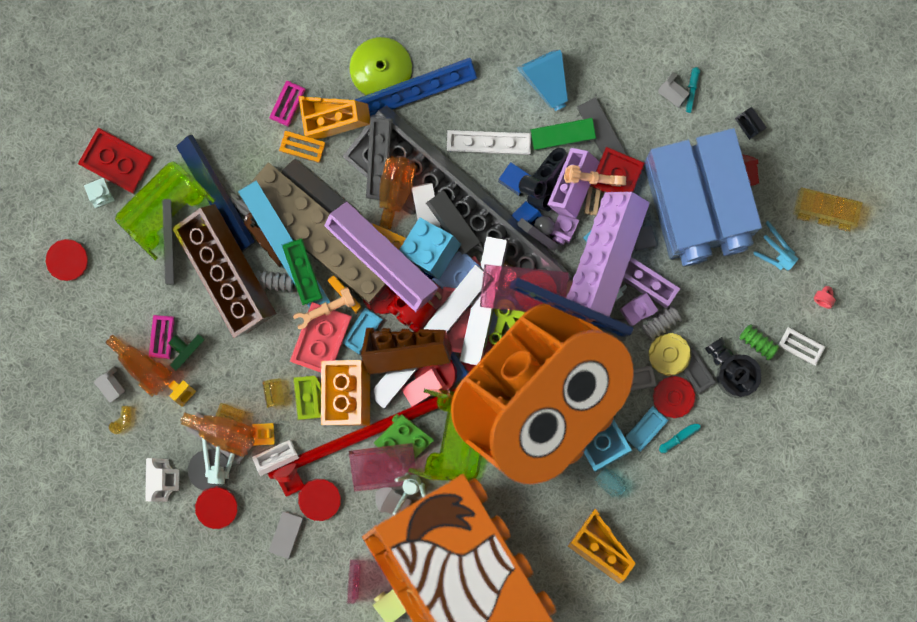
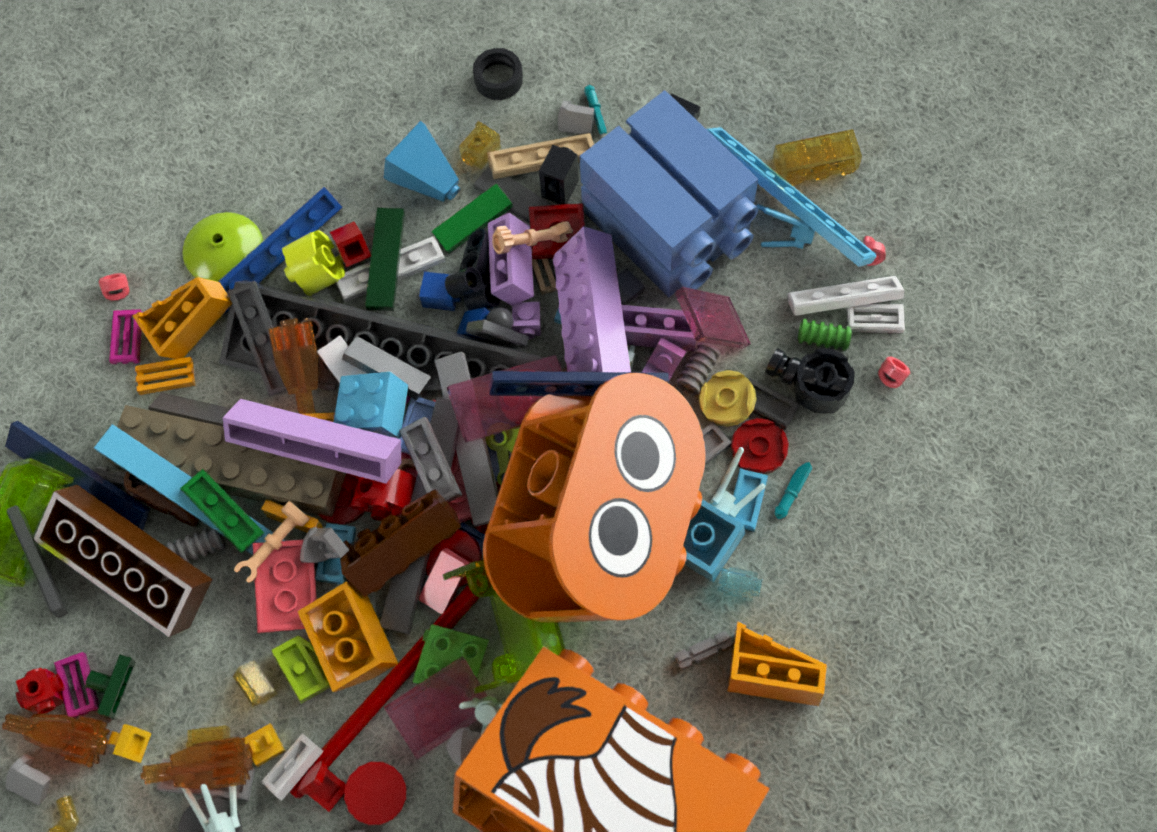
camera: 20 degrees left, 15 degrees down
(144, 336) = (40, 691): none -> red brick
(294, 61) = (114, 282): none -> coral tile
(355, 325) = (321, 545): none -> light grey tile
(437, 117) = (313, 262): none -> neon yellow brick
(451, 305) = (430, 459): none -> light grey tile
(469, 113) = (350, 244): none -> red brick
(488, 136) = (385, 259): none -> dark green tile
(566, 513) = (703, 650): none -> light grey axle
(603, 79) = (476, 154): none -> clear yellow brick
(628, 424) = (724, 500): none -> light aqua plant
(635, 108) = (530, 157): none -> tan tile
(638, 134) = (559, 174): none -> black brick
(639, 10) = (492, 57): none -> black tyre
(687, 297) = (712, 318): none -> clear pink tile
(789, 229) = (797, 202): none -> medium azure tile
(789, 321) = (845, 295): none -> white tile
(791, 391) = (894, 369): none -> coral tile

